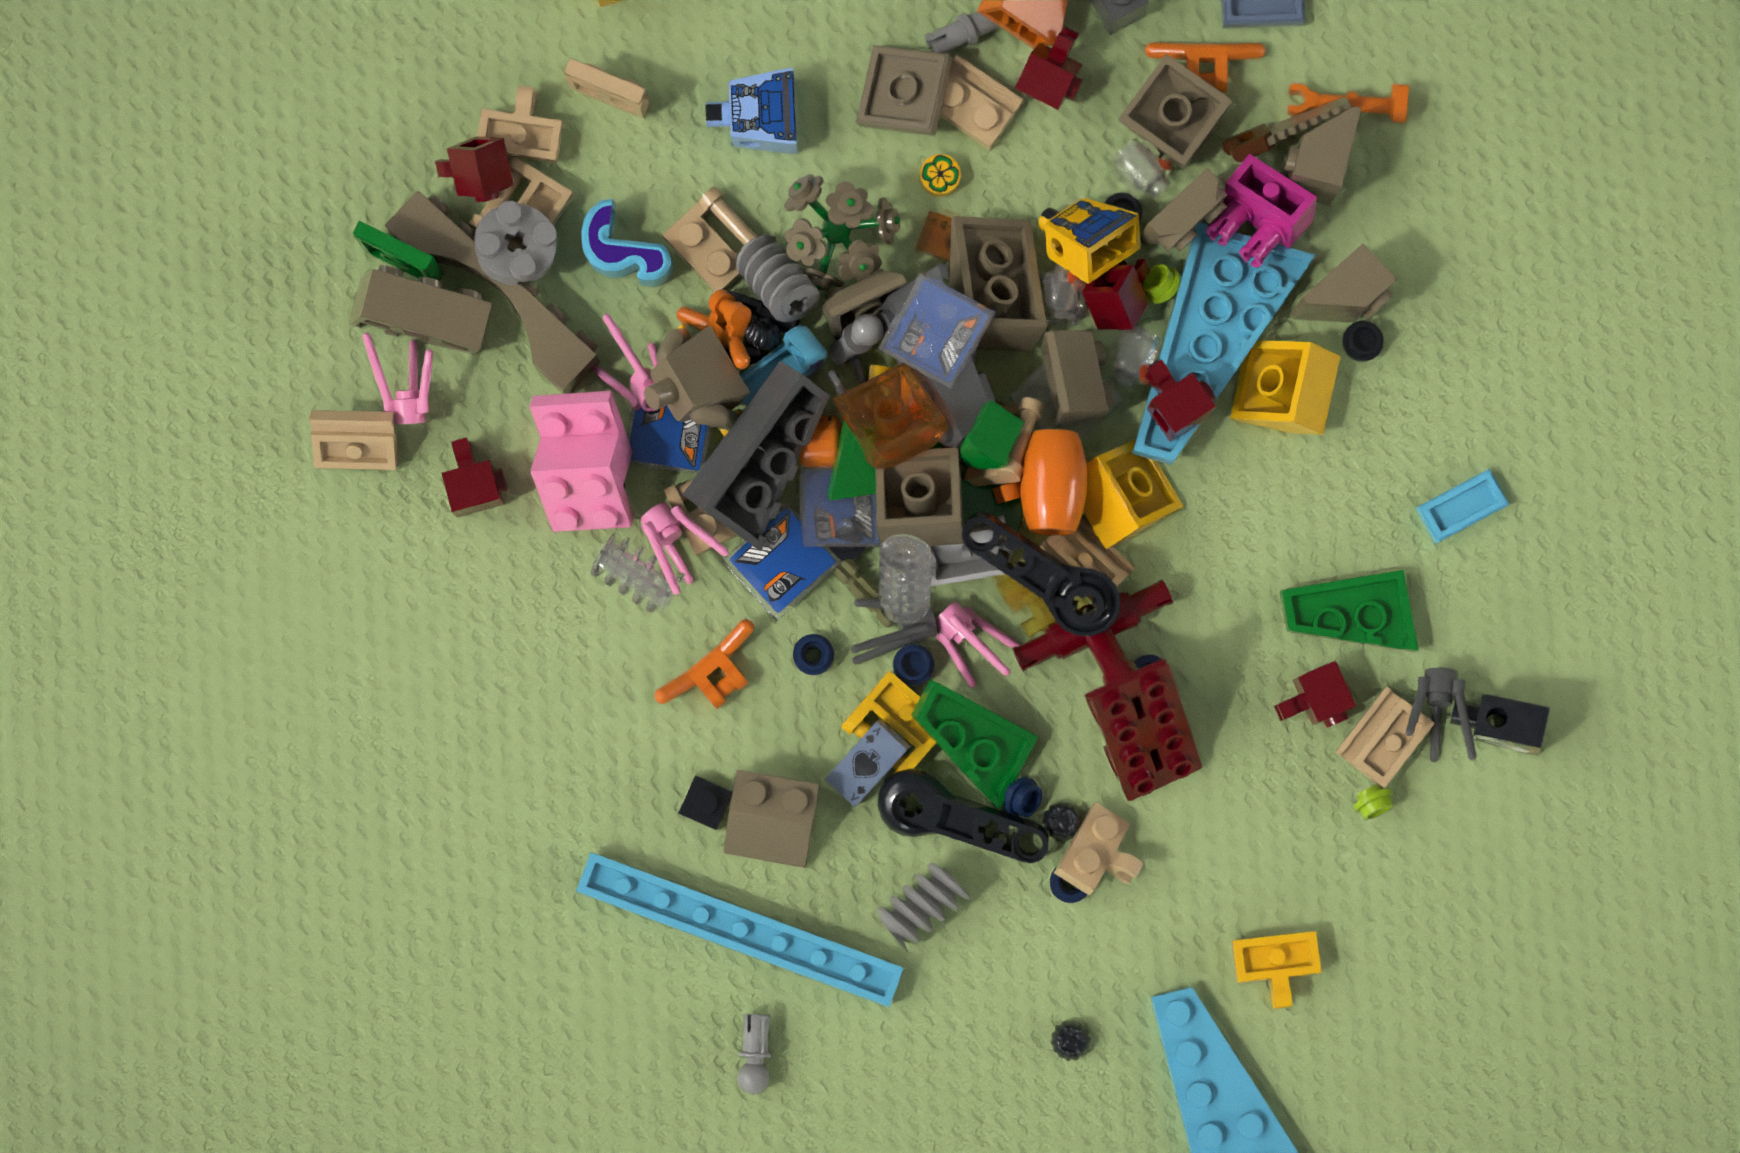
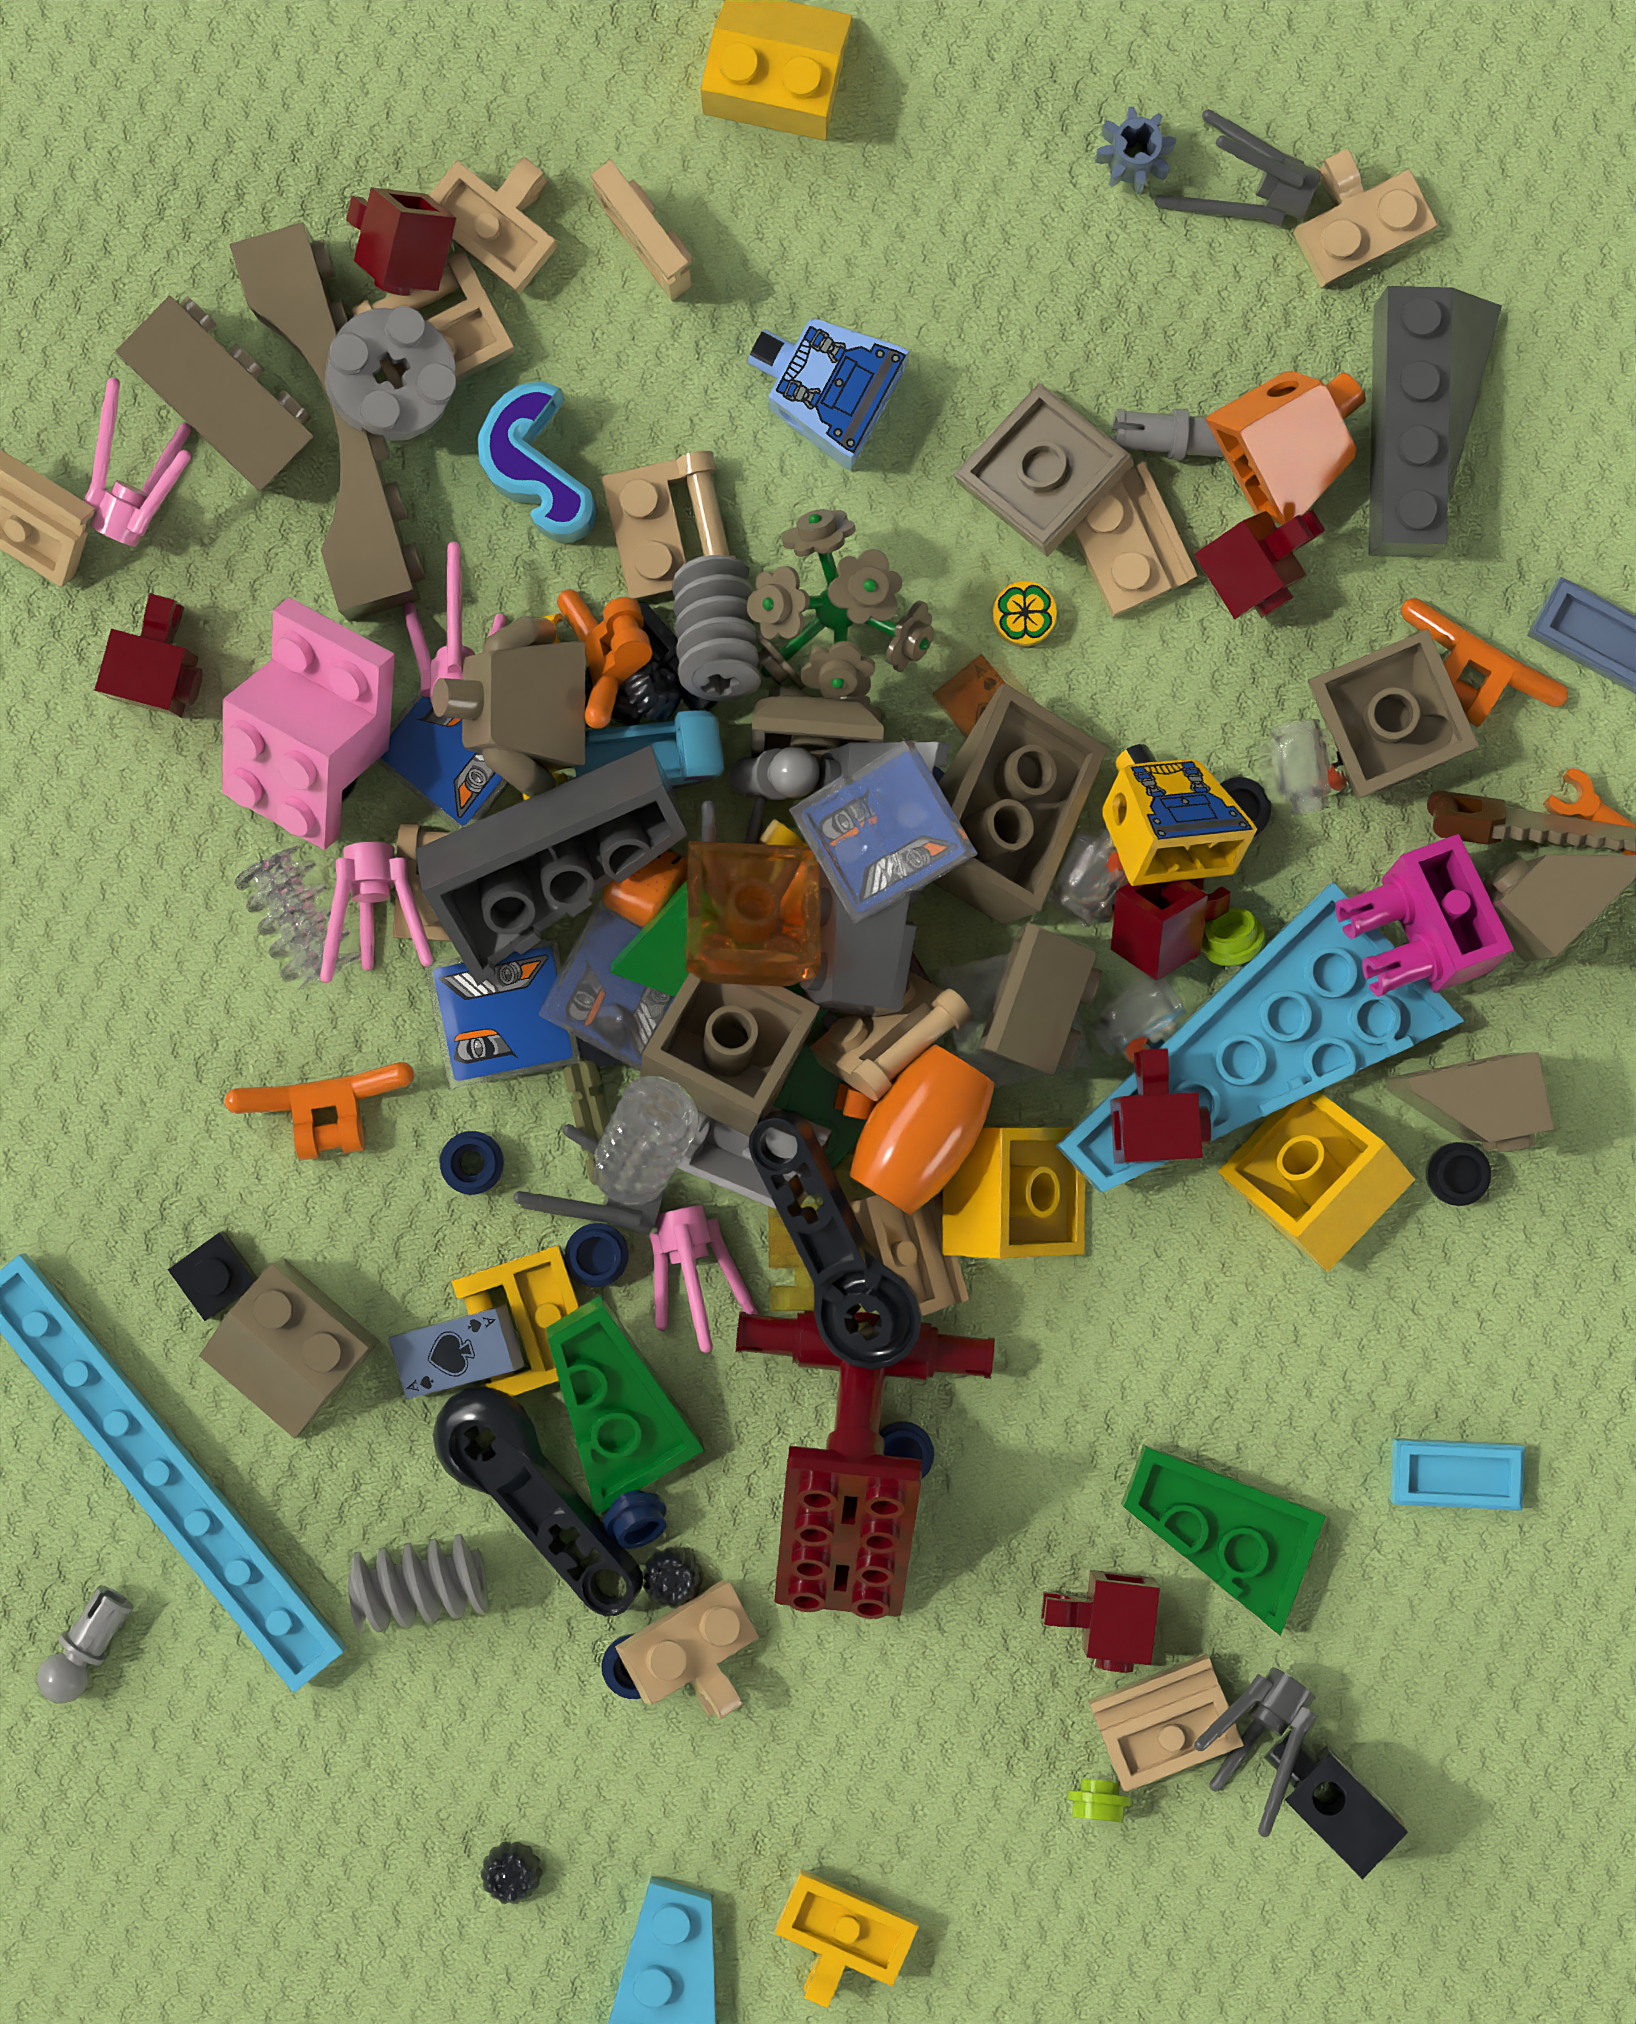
camera: 25 degrees right, 5 degrees up
(396, 252) = (223, 293): green tile -> none
(991, 438) = (872, 1021): green tile -> none
(1177, 220) = (1303, 869): dark tan slope -> none

